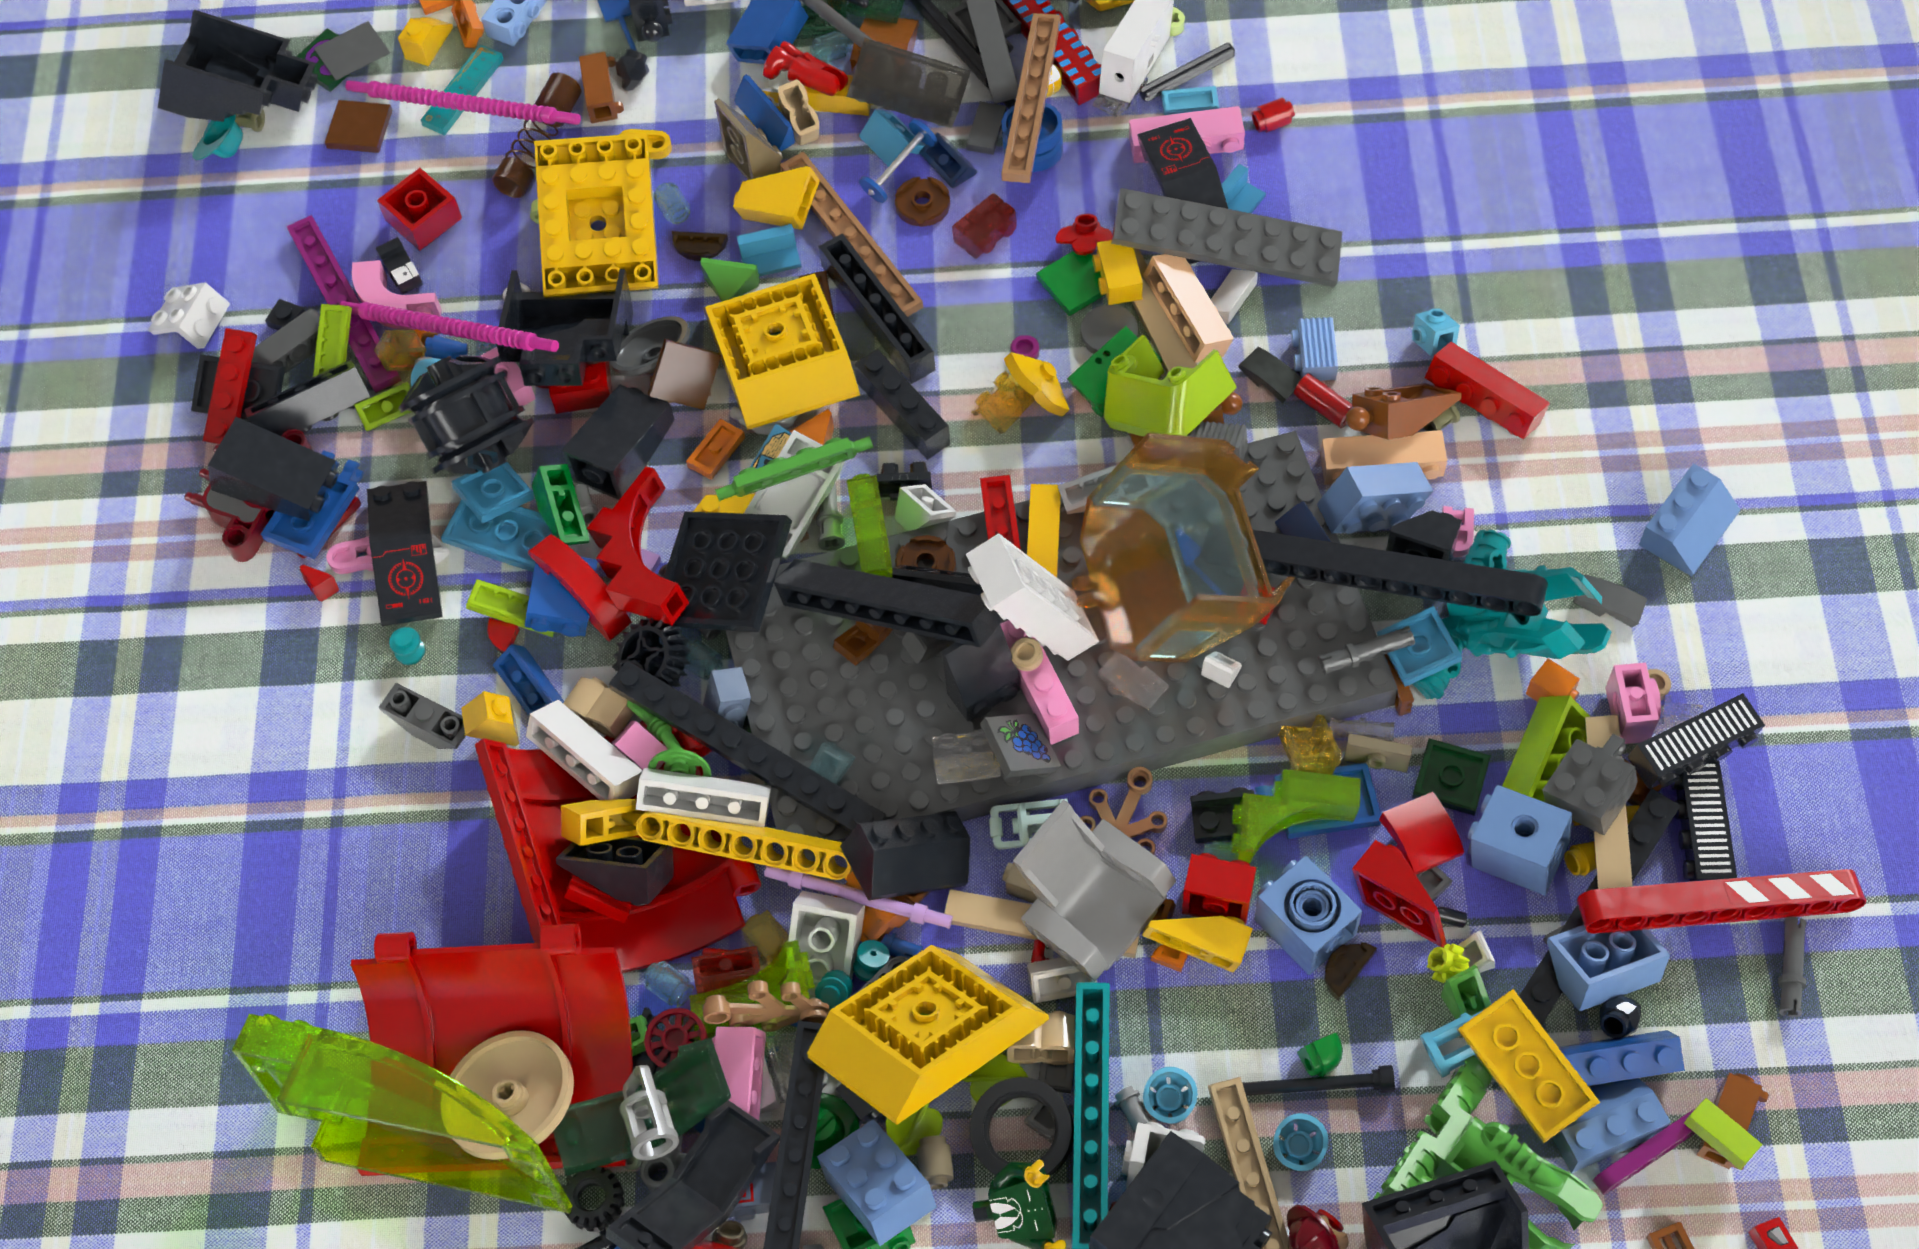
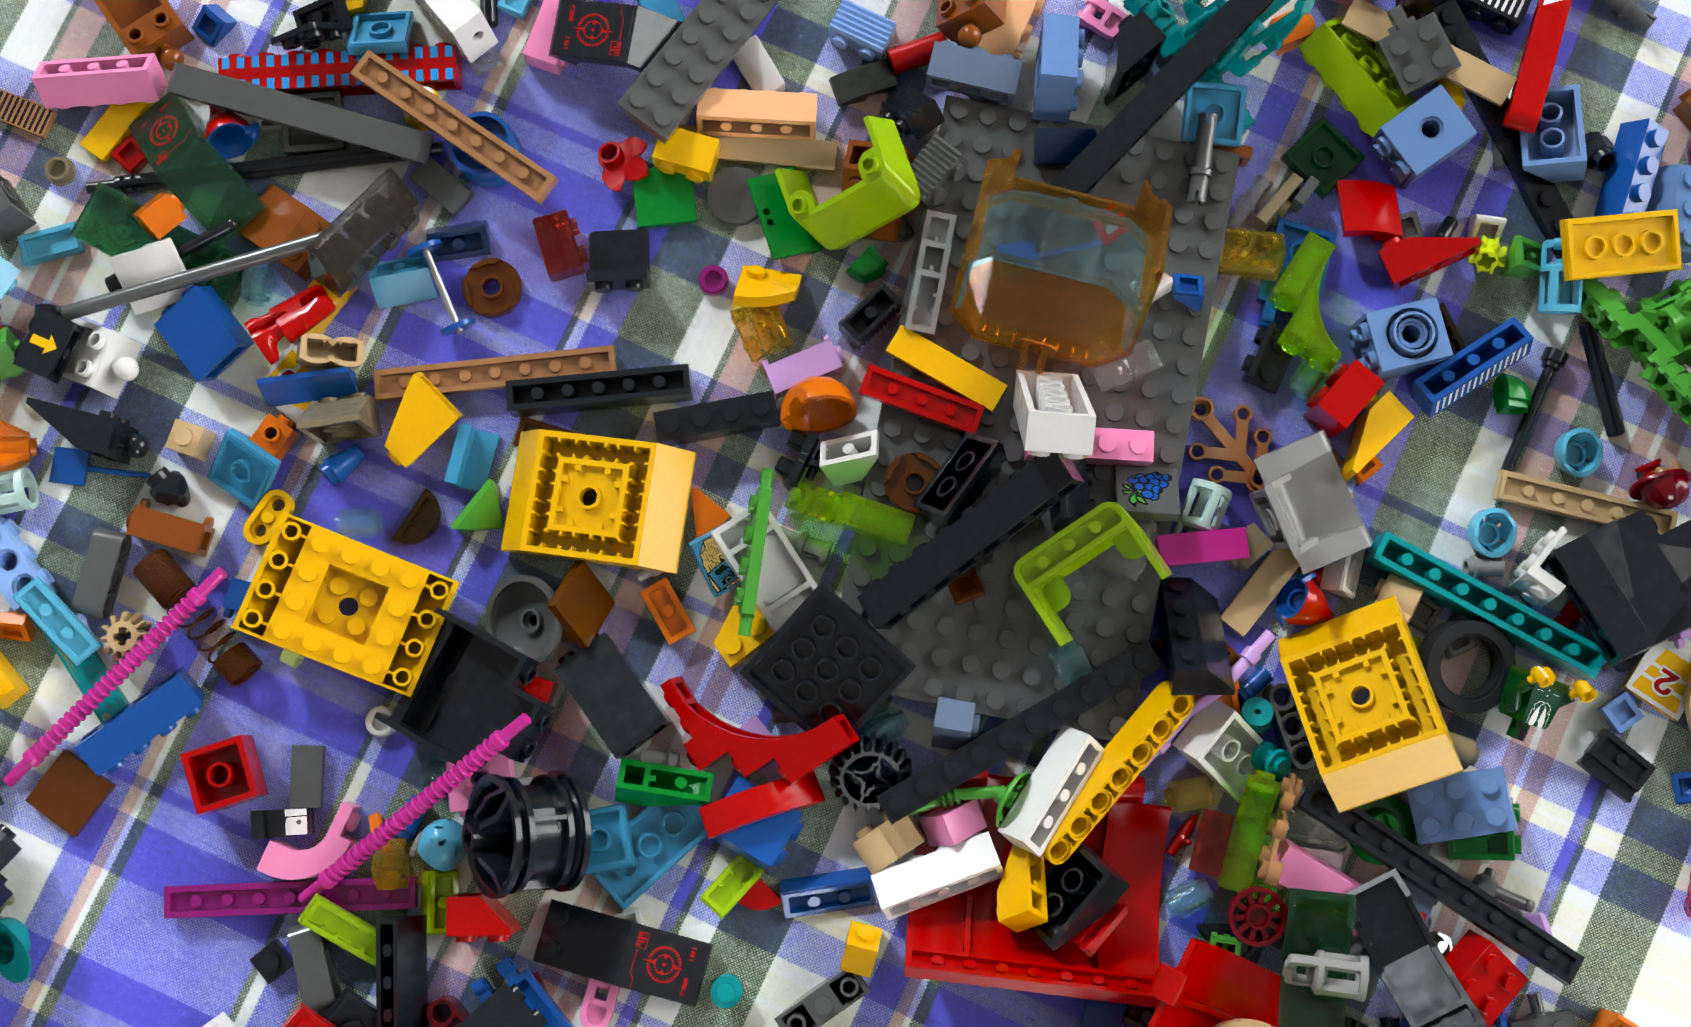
camera: 70 degrees left, 20 degrees up
(384, 429) = (476, 916): none -> red slope
(435, 137) = (140, 722): none -> blue brick
(447, 268) = (307, 776): none -> dark grey tile
(487, 48) = (57, 620): none -> medium azure tile
(499, 90) = (120, 628): none -> tan gear
(540, 60) = (102, 573): none -> dark grey beam
(673, 105) = (243, 469): none -> dark azure tile
(677, 64) = (190, 440): none -> tan brick
(704, 116) = (282, 441): none -> orange brick
(713, 169) = (340, 465): none -> blue cone
(913, 691) = (1045, 567): none -> lime windscreen
(954, 467) = (818, 405): none -> orange cylinder
(985, 446) = (815, 361): none -> lavender brick
(996, 820) = (1203, 546): none -> dark pink tile
(997, 274) = (619, 261): none -> black bracket
(1002, 955) = (1307, 606): none -> hat
(1057, 466) = (870, 315): none -> black brick
(1083, 23) = (381, 32): none -> dark azure tile
(1107, 450) = (867, 267): none -> green piece
(1235, 699) = (1189, 290): none -> blue slope
(1263, 415) = (912, 112): none -> black brick
(1323, 996) = (1471, 367): none -> blue brick
(1326, 435) = (973, 72): none -> sand blue brick
(1388, 1140) = (1602, 380): none -> black axle
(1401, 771) = (1304, 194): none -> dark grey tile

